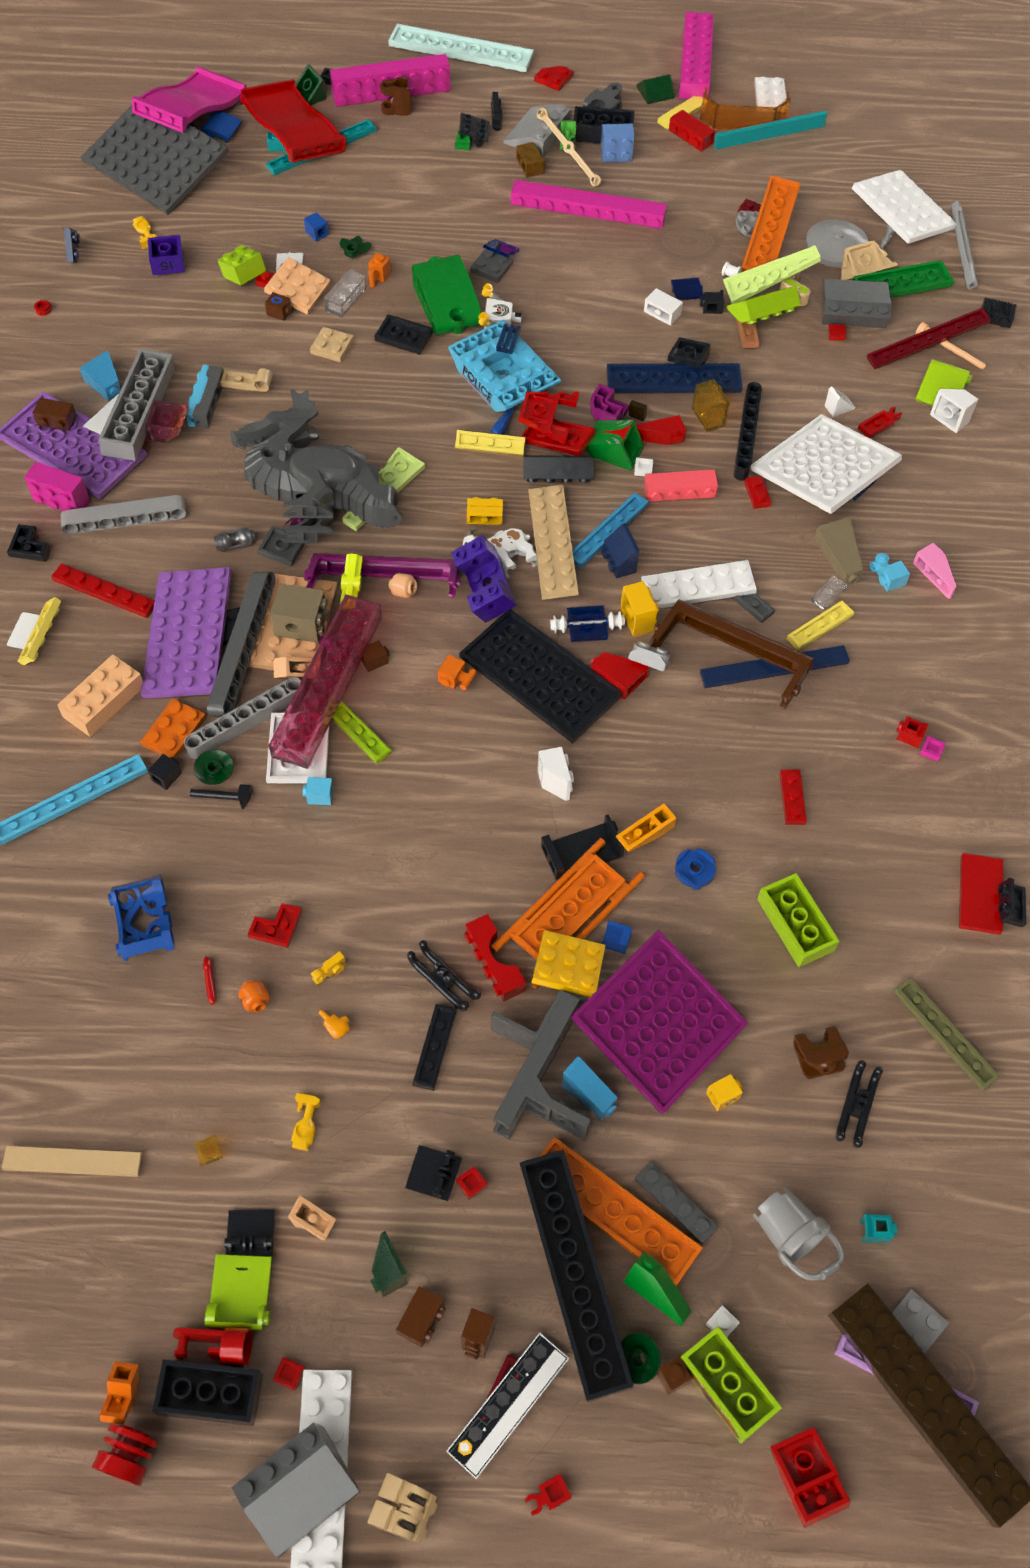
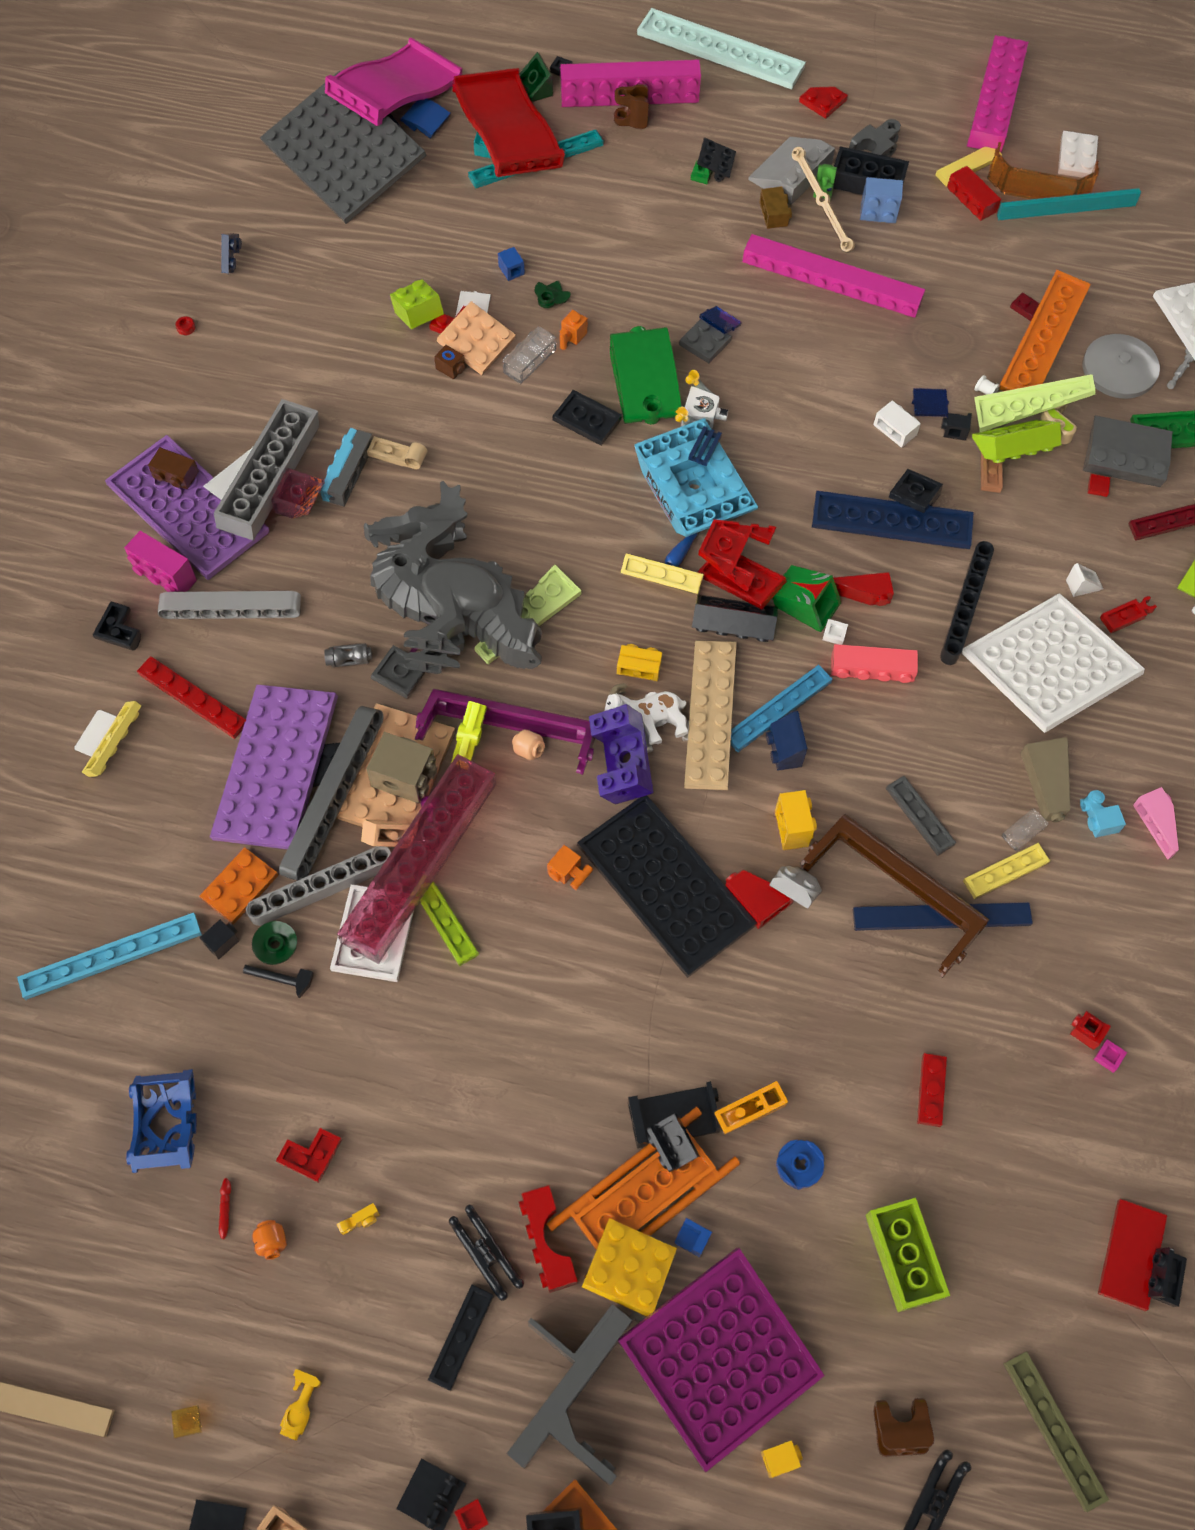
camera: 10 degrees right, 5 degrees up
(101, 695) = (165, 831): light nougat brick -> none
(102, 376) = (236, 424): dark azure slope -> none
(143, 226) = (315, 237): yellow piece -> none
(166, 254) = (333, 278): dark purple brick -> none
(318, 791) = (386, 992): medium azure brick -> none
(331, 344) = (502, 418): tan plate -> none
(336, 1026) = (354, 1292): light orange piece -> none
(375, 656) = (481, 830): reddish brown brick -> none
(496, 111) = (746, 138): black hinge -> none
(555, 773) = (658, 1015): white slope -> none
(586, 863) = (672, 1143): none -> bracket
(587, 623) = (732, 826): clear blue plate -> none
(589, 1089) = (626, 1429): dark azure slope -> none
(605, 407) = (804, 549): magenta brick -> none
(637, 410) = (841, 556): dark brown tile -> none
(656, 89) = (942, 132): dark green slope -> none
(701, 583) = (873, 796): white plate -> none
(710, 405) = (928, 564): clear yellow brick -> none
(746, 221) = (1016, 324): light grey dish -> none
(757, 492) = (964, 684): red plate -> none
(864, 259) = (1149, 395): tan wing -> none

